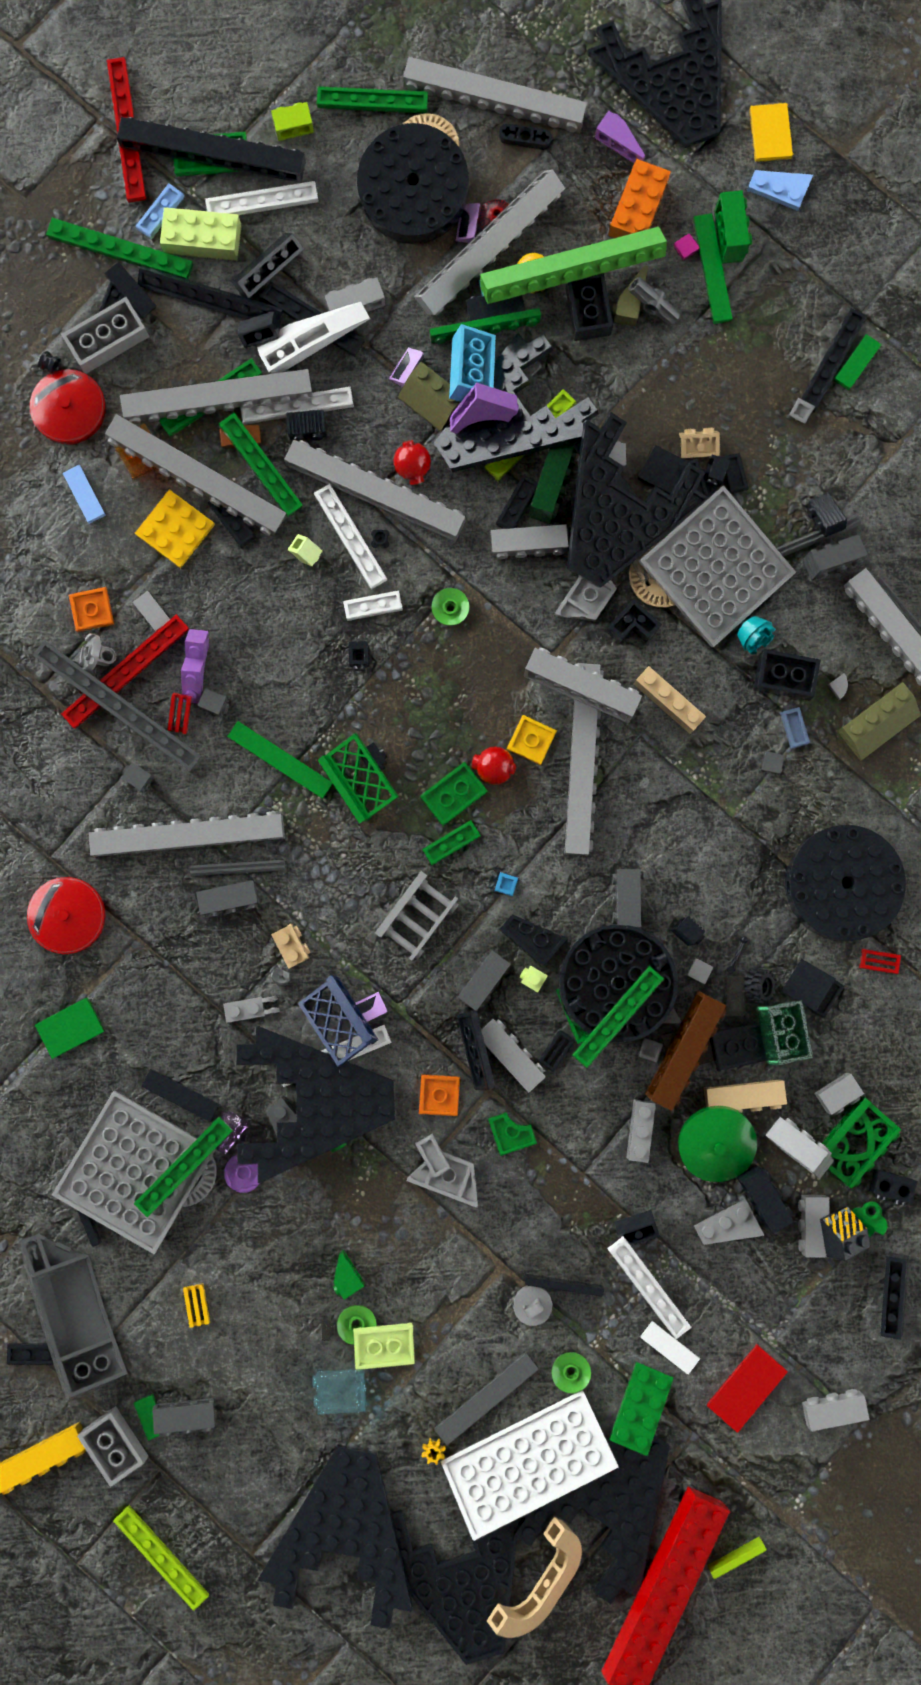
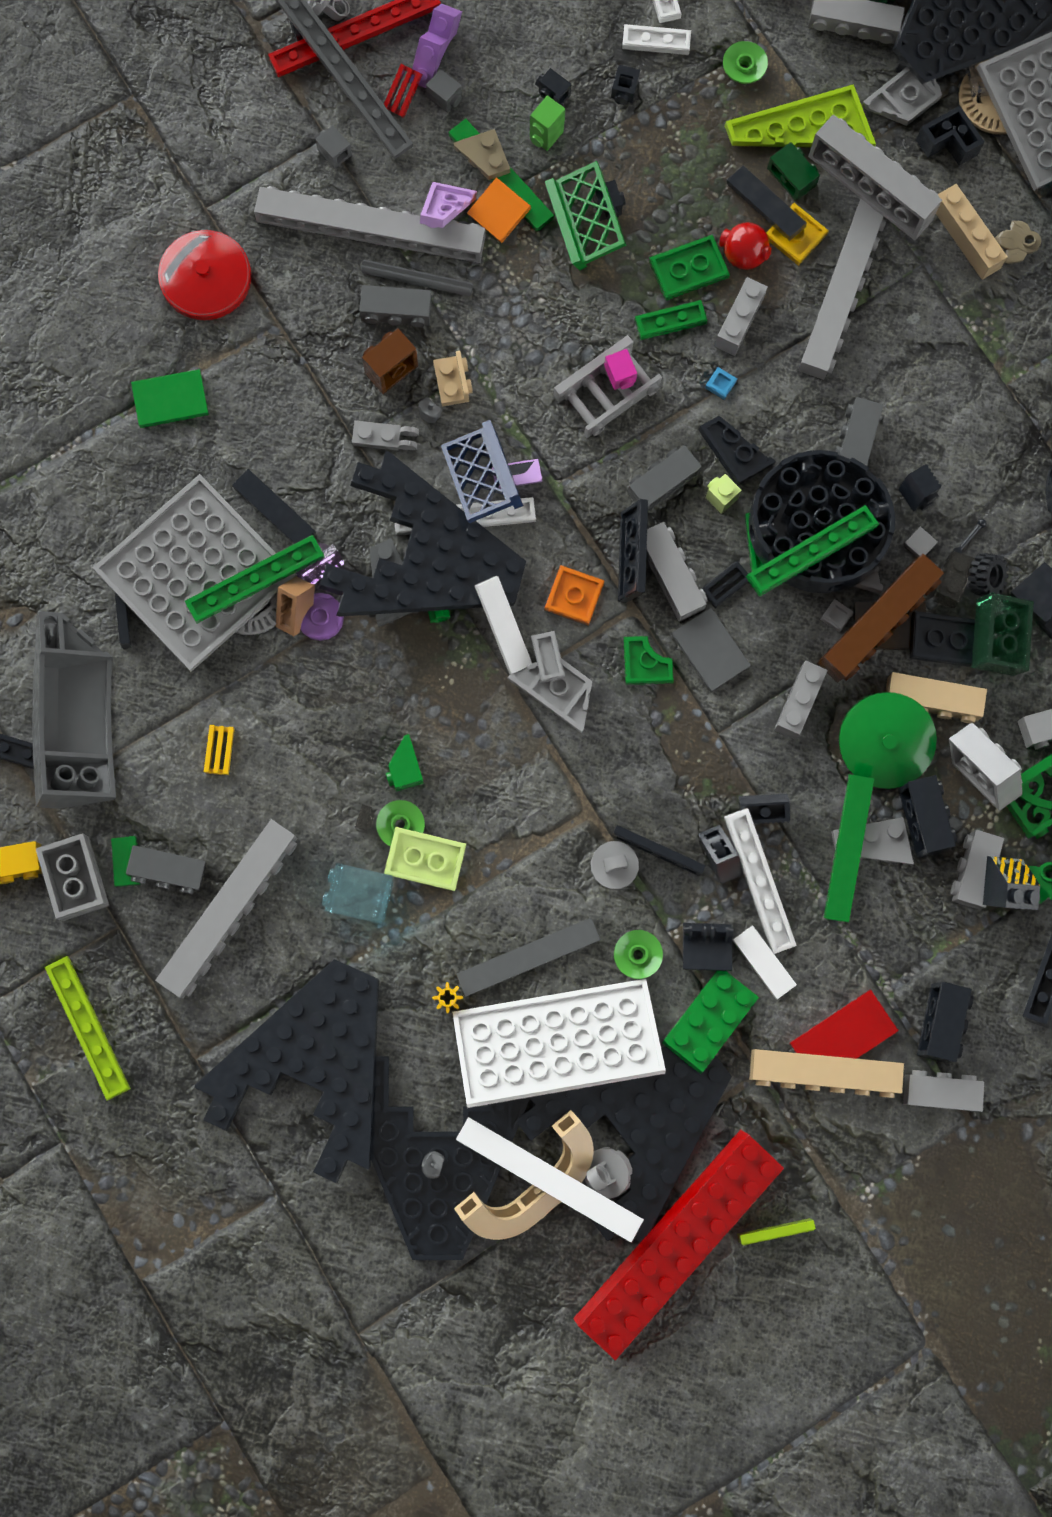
camera: 15 degrees right, 5 degrees down
(220, 1172) = (293, 602): none -> medium nougat arch
(236, 949) = (390, 360): none -> reddish brown brick
(241, 1432) = (226, 910): none -> light grey brick
(242, 803) = (444, 204): none -> lavender wing
(262, 748) = (485, 154): none -> dark tan wing
(287, 792) = (499, 210): none -> orange tile
(301, 675) = (554, 86): none -> black brick
(304, 710) = (547, 123): none -> bright green brick
(391, 1141) = (503, 624): none -> white tile
(424, 905) = (620, 369): none -> dark pink brick
(460, 1589) = (432, 1164): none -> dark grey piece
(500, 722) = (766, 203): none -> black tile
(506, 826) = (740, 316): none -> light grey brick
(514, 643) = (799, 120): none -> lime wing
(515, 688) = (793, 171): none -> dark green brick
(553, 1577) = (550, 1180): none -> white tile
(559, 1108) = (710, 650): none -> dark grey tile
(596, 1553) = (609, 1172): none -> light grey tile
(612, 1273) = (721, 854): none -> black arch
(622, 1350) = (707, 946): none -> black hinge
(707, 695) = (1015, 243): none -> dark tan plate
(711, 1240) = (848, 848): none -> green tile
(741, 1424) = (827, 1072): none -> tan brick
(822, 1359) = (945, 1022): none -> black brick

